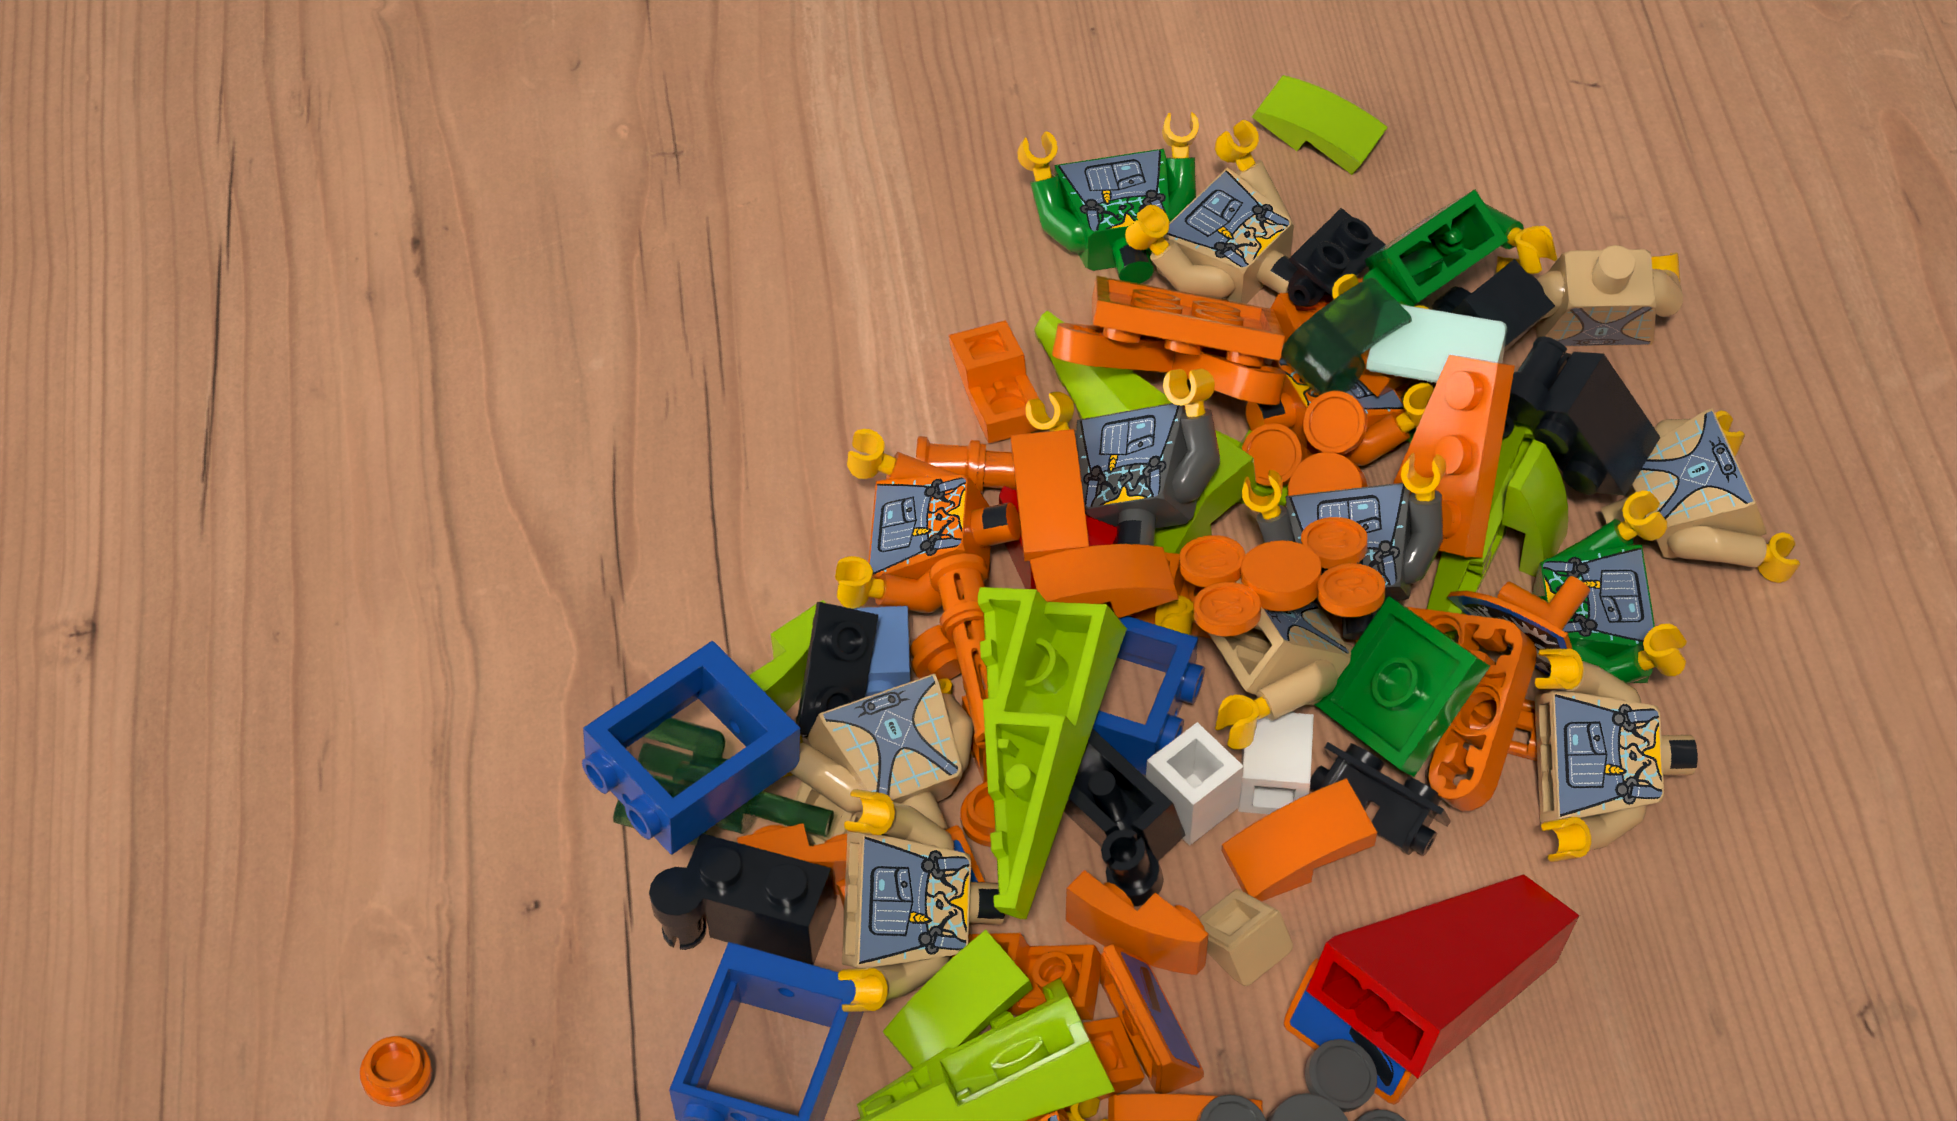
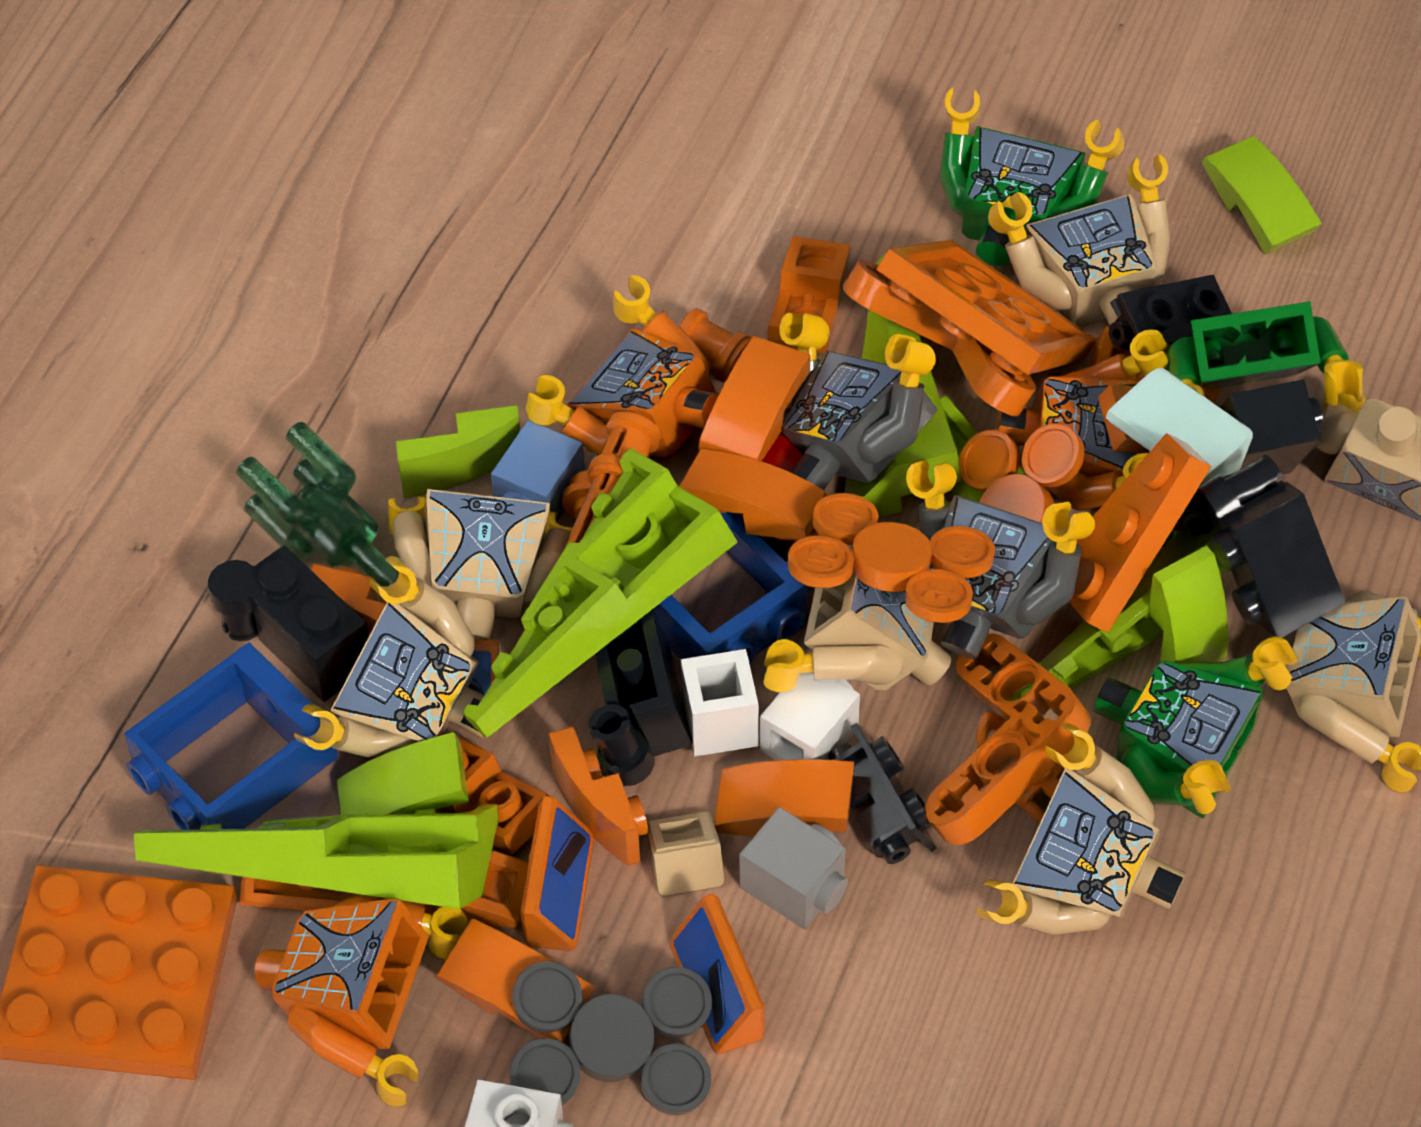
camera: 30 degrees right, 0 degrees up
(737, 701) = (313, 512): blue window -> none
(835, 661) = (487, 454): black hinge -> none
(1331, 342) = (1090, 377): clear green panel -> none
(1354, 892) = (794, 868): none -> light grey brick
(1403, 686) = (953, 706): green plate -> none
(1441, 969) = (815, 955): red slope -> none
(1534, 616) = (1122, 708): shield -> none

